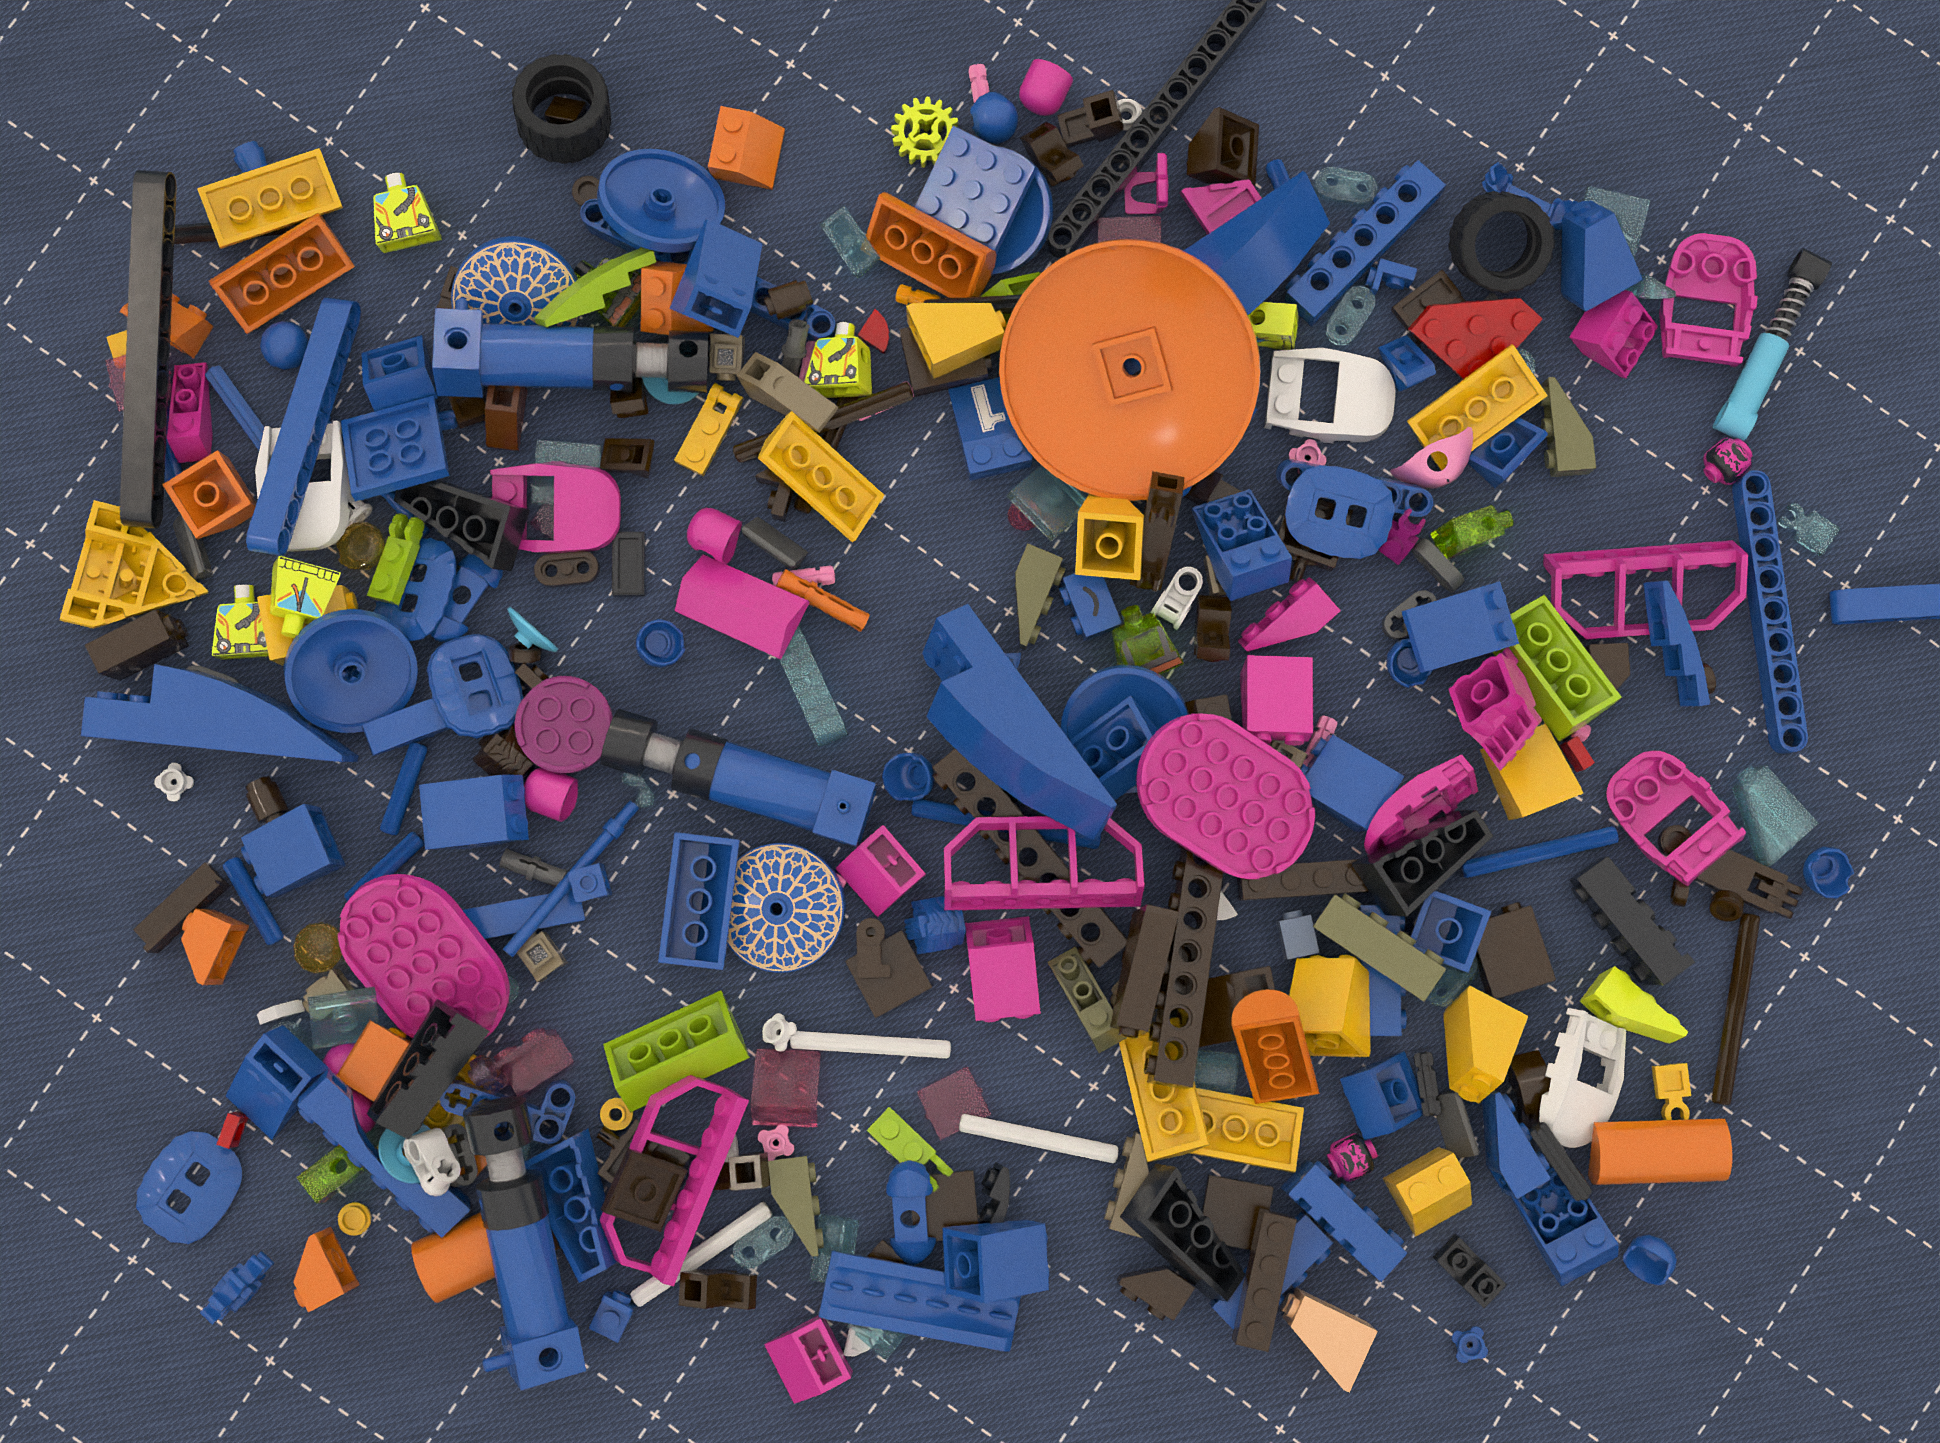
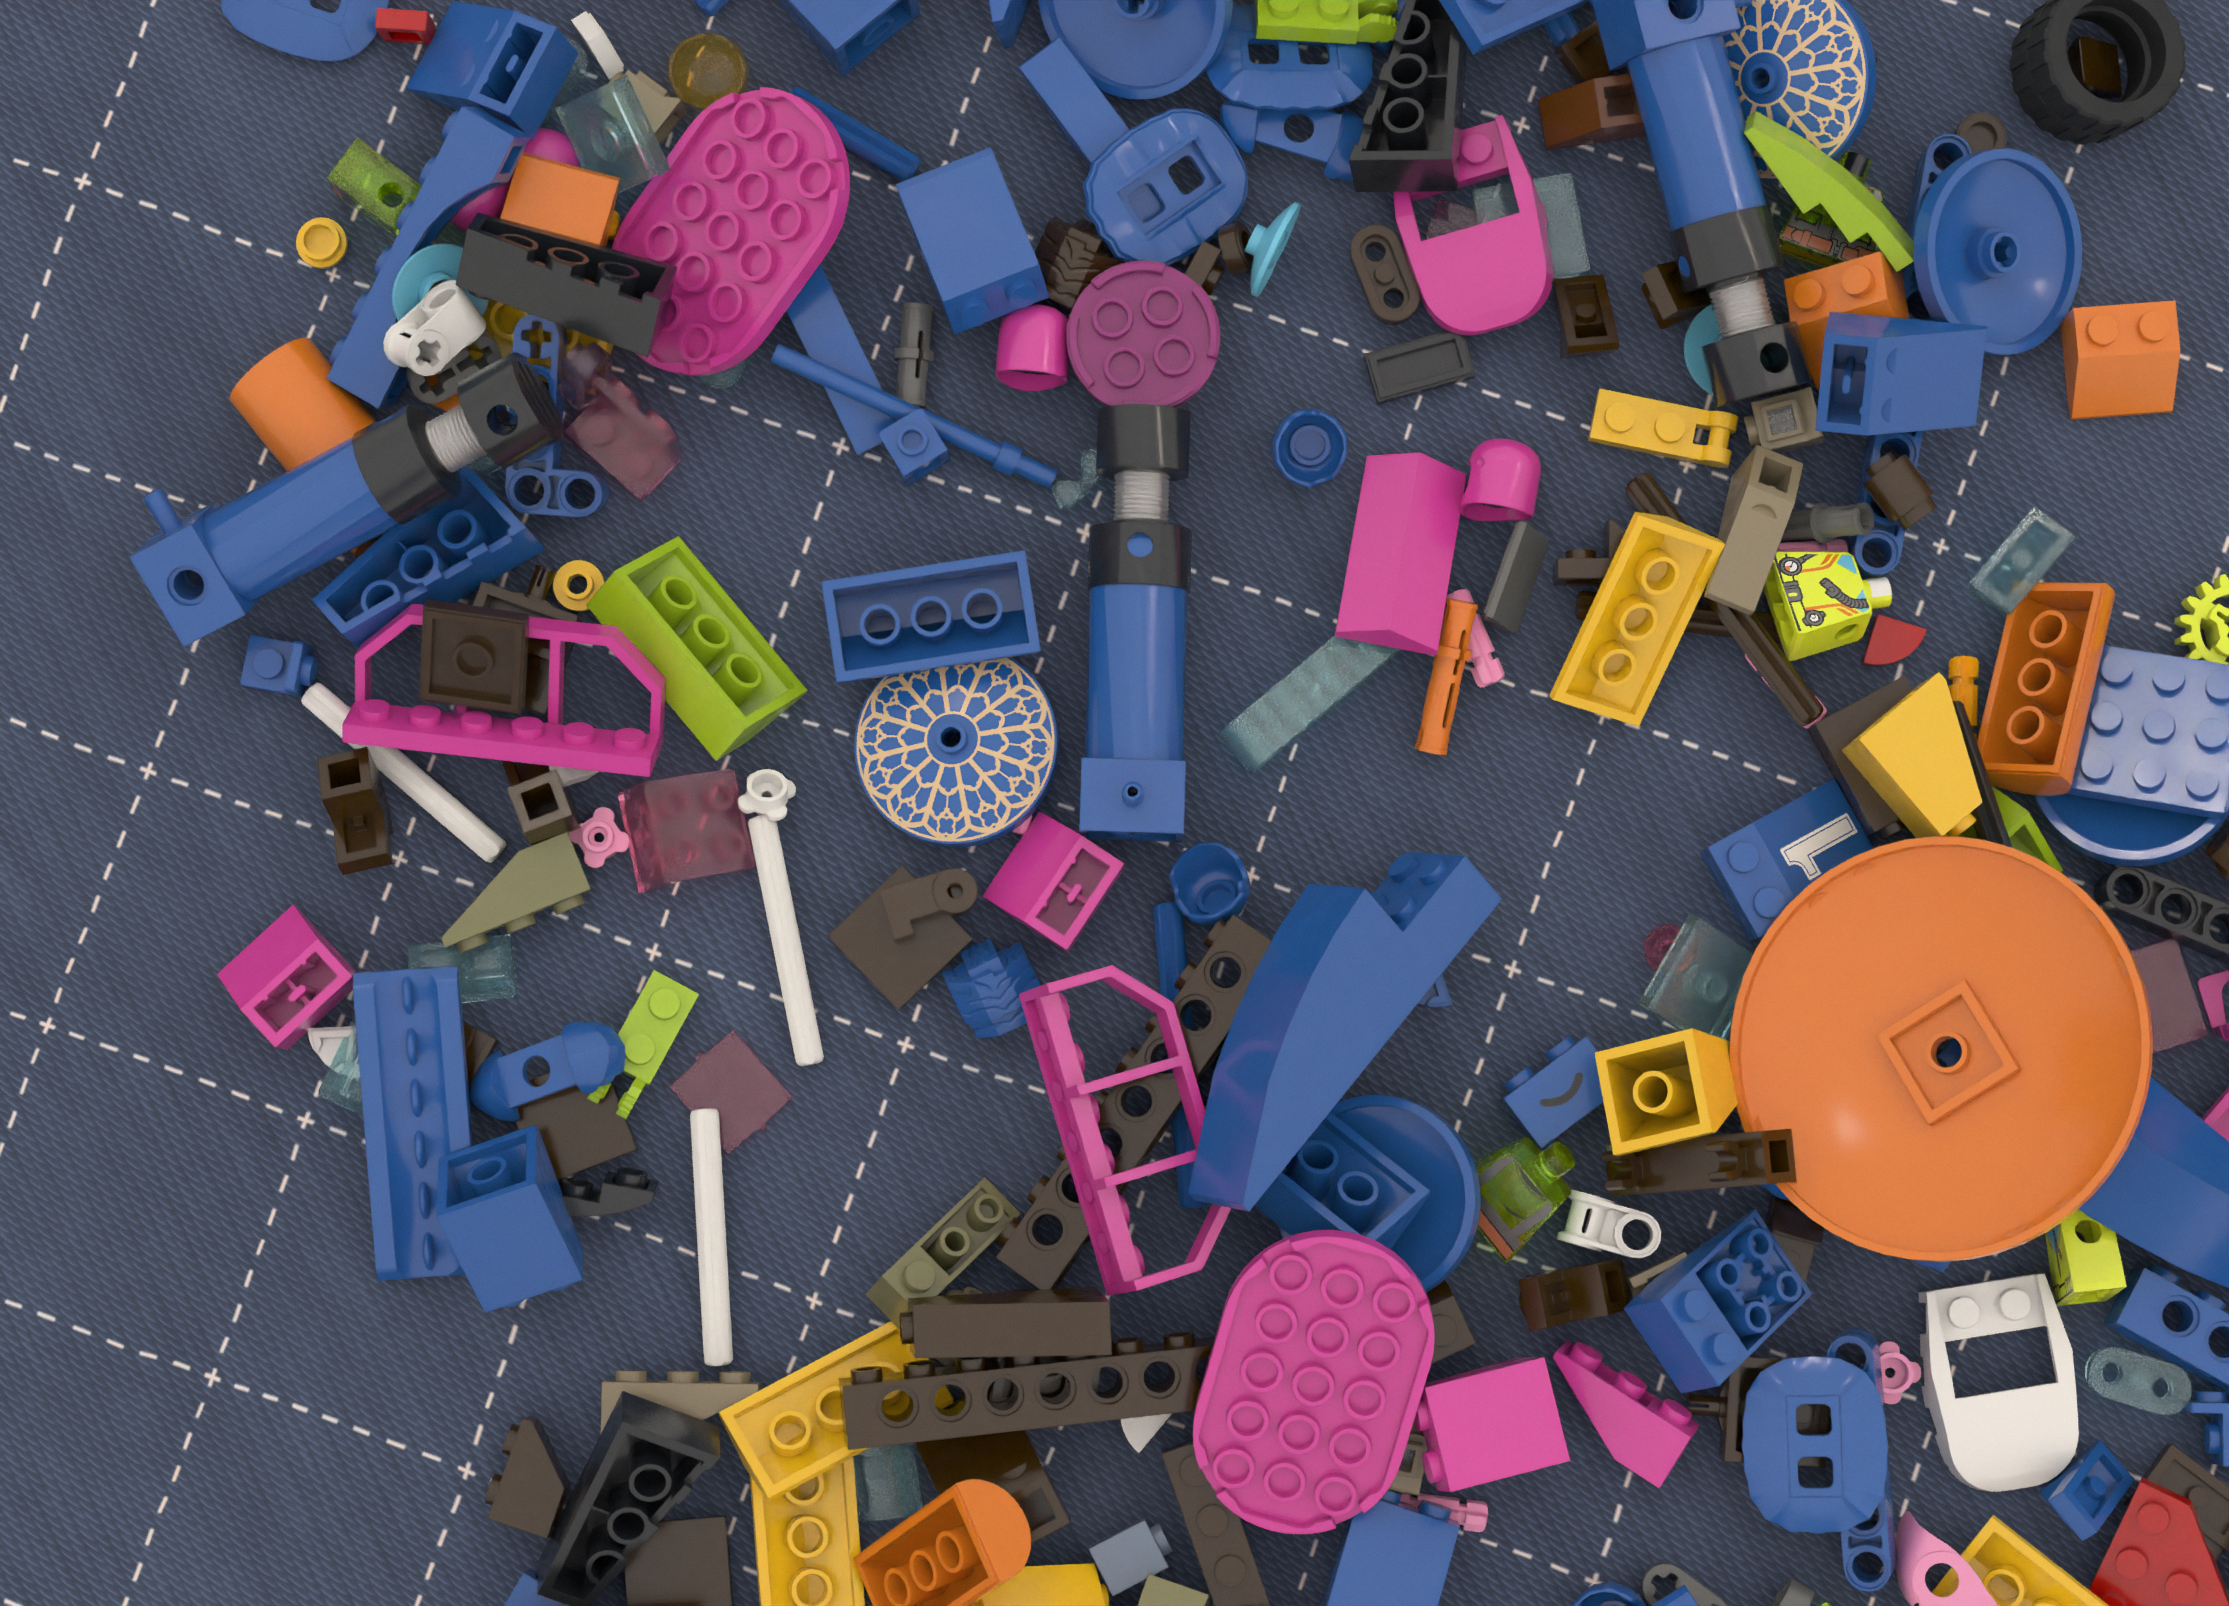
camera: 80 degrees right, 0 degrees up
(237, 1287) = (175, 100): blue gear -> none
(322, 1271) = (231, 218): orange slope -> none
(403, 788) = (981, 128): blue axle -> none
(541, 955) = (785, 405): dark tan window -> none
(762, 1242) = (444, 860): clear light blue plate -> none
(1002, 969) = (954, 1109): dark pink slope -> none
(1033, 583) = (1568, 994): olive slope -> none
(1401, 538) = (1803, 1555): magenta plate -> none

